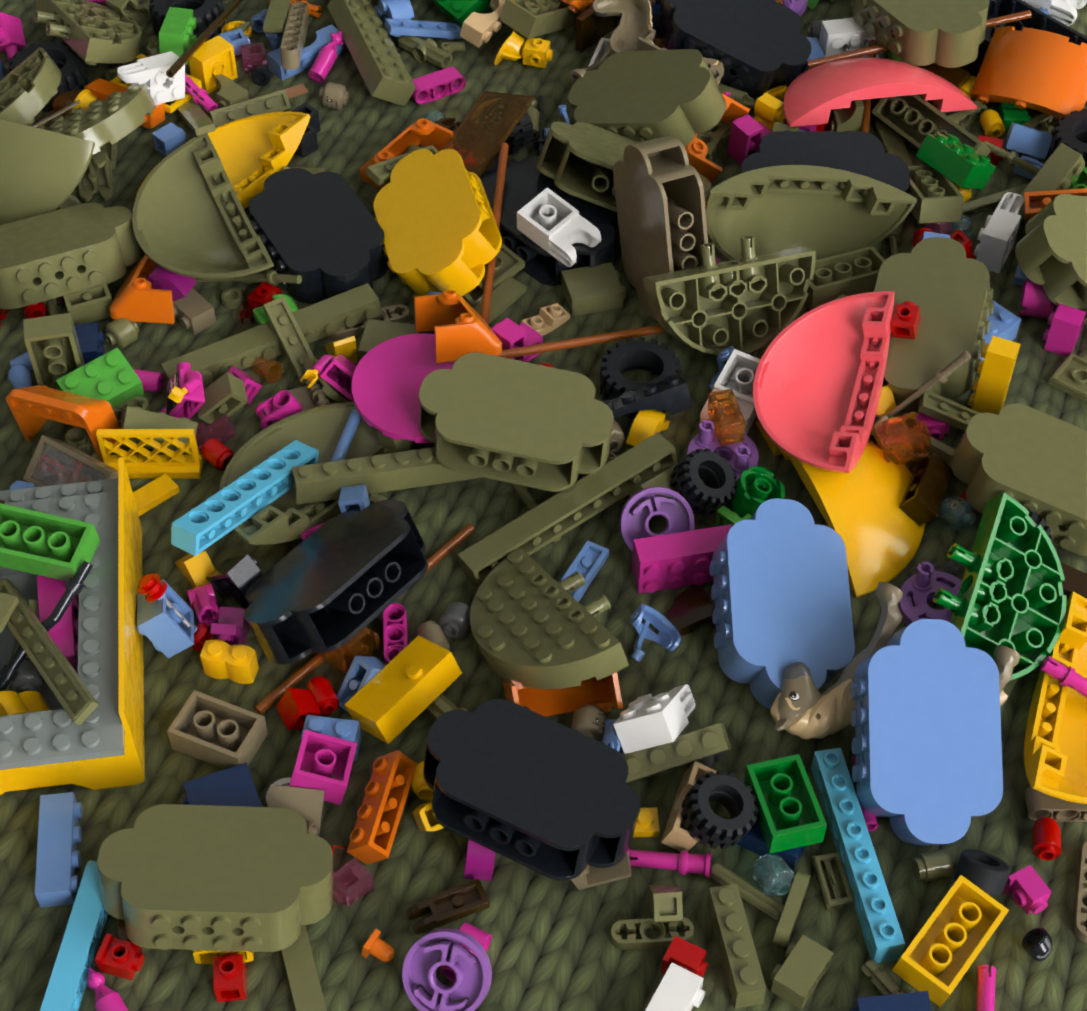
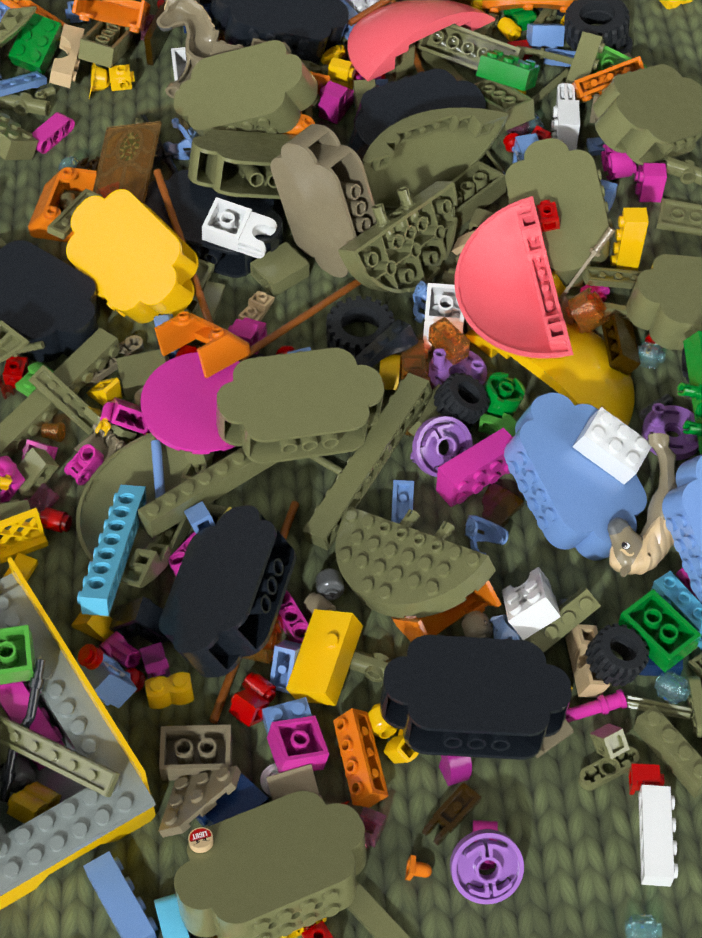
camera: 25 degrees left, 5 degrees up
(155, 812) = (200, 840): none -> tile
(187, 775) = (196, 796): none -> dark tan plate
(679, 427) = (414, 361): none -> clear orange slope
(834, 581) = (612, 445): none -> white brick

